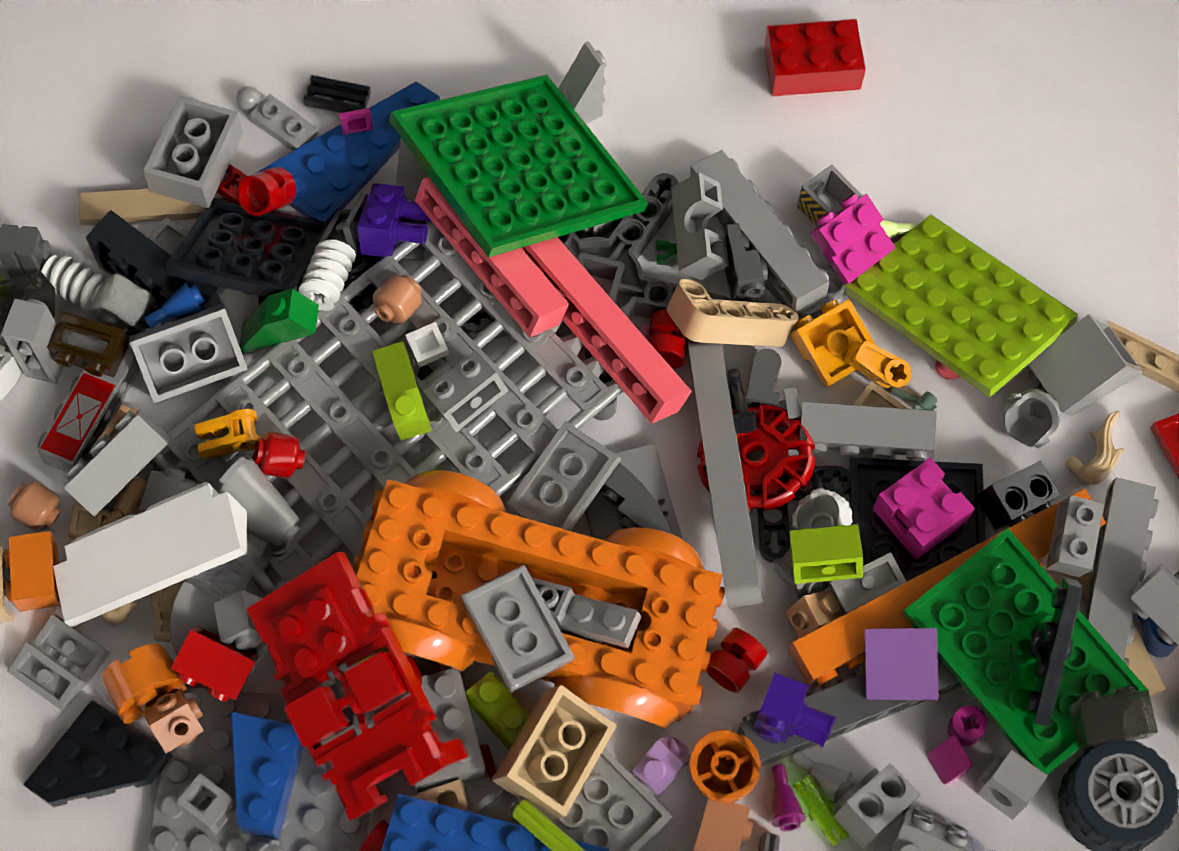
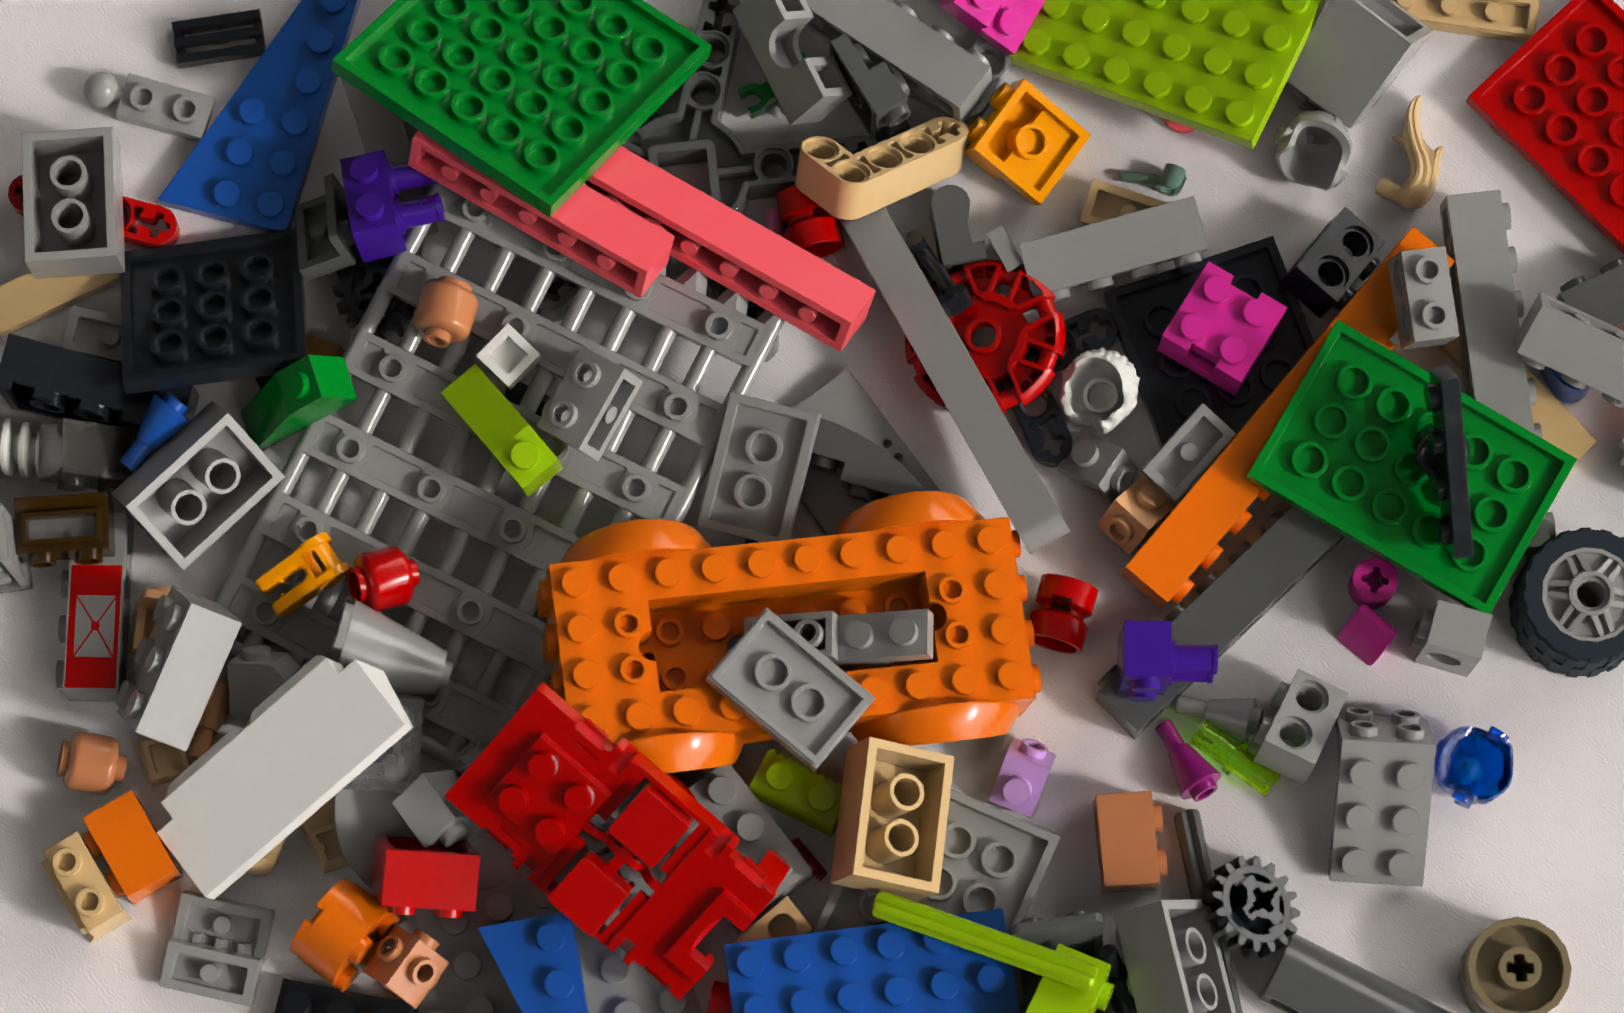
camera: 20 degrees left, 10 degrees up
(266, 191) = (195, 219): red wheel -> none
(327, 273) = (333, 309): white piece -> none
(356, 121) = (265, 69): dark pink slope -> none
(724, 766) = (1101, 752): orange cylinder -> none
(826, 554) = (1124, 437): lime brick -> none
(876, 365) = (1094, 153): light orange piece -> none
(901, 664) = (1269, 543): medium lavender tile -> none
(1113, 718) = (1545, 513): clear smoke brick -> none

